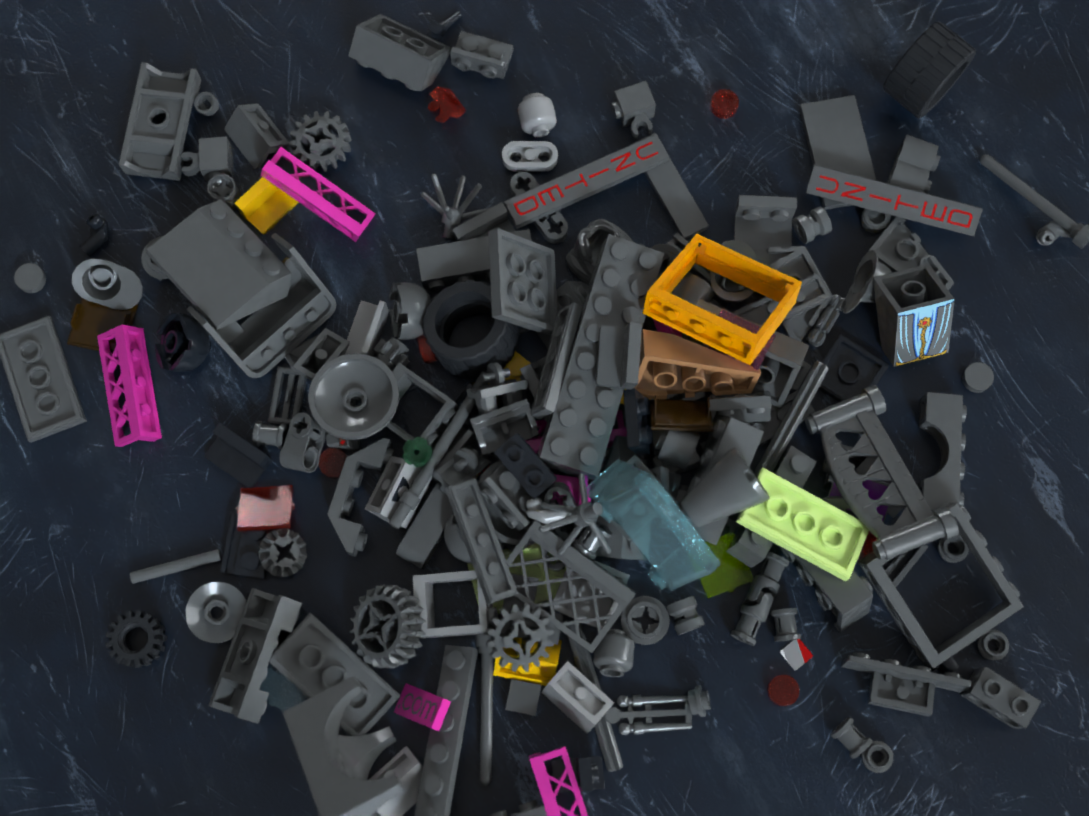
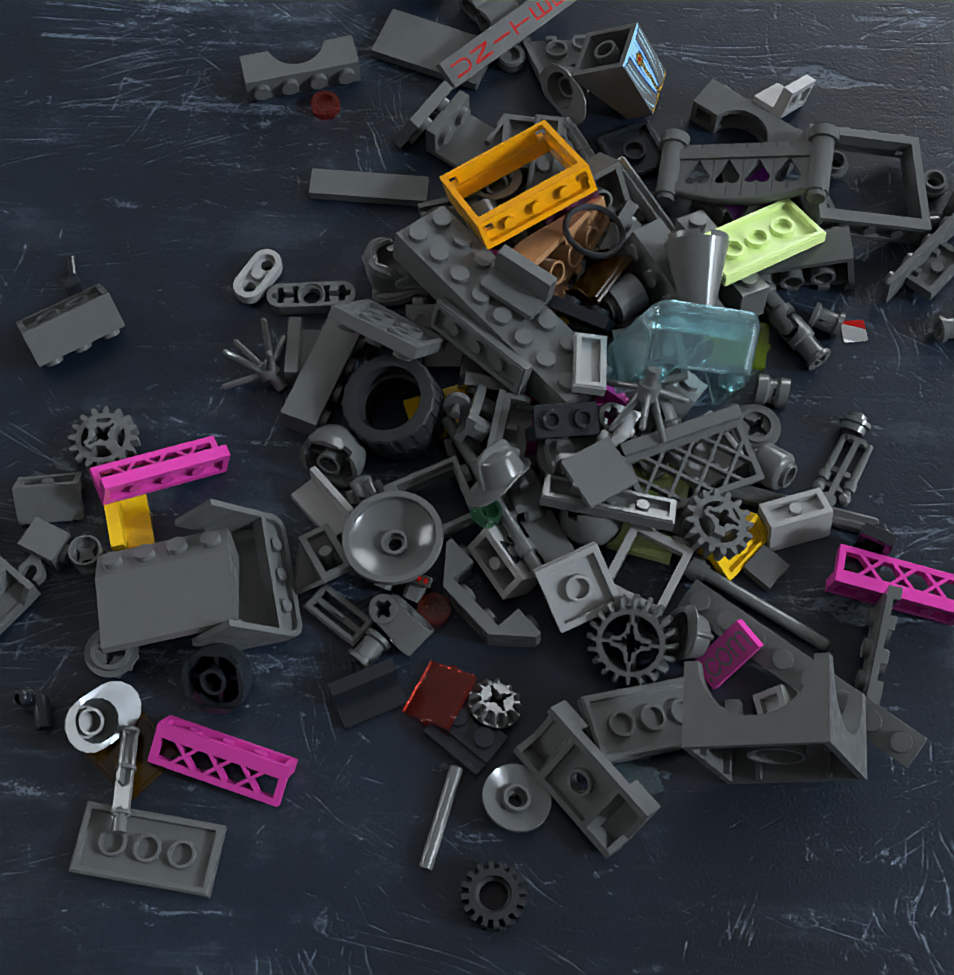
camera: 60 degrees left, 10 degrees down
(30, 278) = (31, 799): dark grey tile -> none
(75, 329) = (124, 778): none -> dark grey piece
(397, 557) = (577, 586): none -> light grey plate
(422, 668) = (693, 633): none -> dark grey piece
(426, 353) = (381, 462): clear red tile -> none
(447, 102) = (153, 313): clear red tile -> none
(448, 440) = (495, 473): none -> dark grey piece
(481, 55) = (128, 261): dark grey bracket -> none
(495, 518) = (598, 472): none -> dark grey piece
(537, 114) = (224, 246): light grey head -> none
(584, 454) = (589, 364): none -> light grey tile
(586, 181) = (318, 243): dark grey tile -> none
(634, 107) = (276, 167): dark grey brick -> none
(694, 403) = (589, 206): none -> black tyre
(764, 85) = (332, 66): none -> dark grey arch
(768, 186) = (424, 115): none -> dark grey plate
(783, 690) = (881, 357): clear red tile -> none
(812, 225) = (486, 100): dark grey wheel -> none
(977, 377) = (699, 67): dark grey tile -> none
(990, 466) = (784, 100): none -> light grey panel

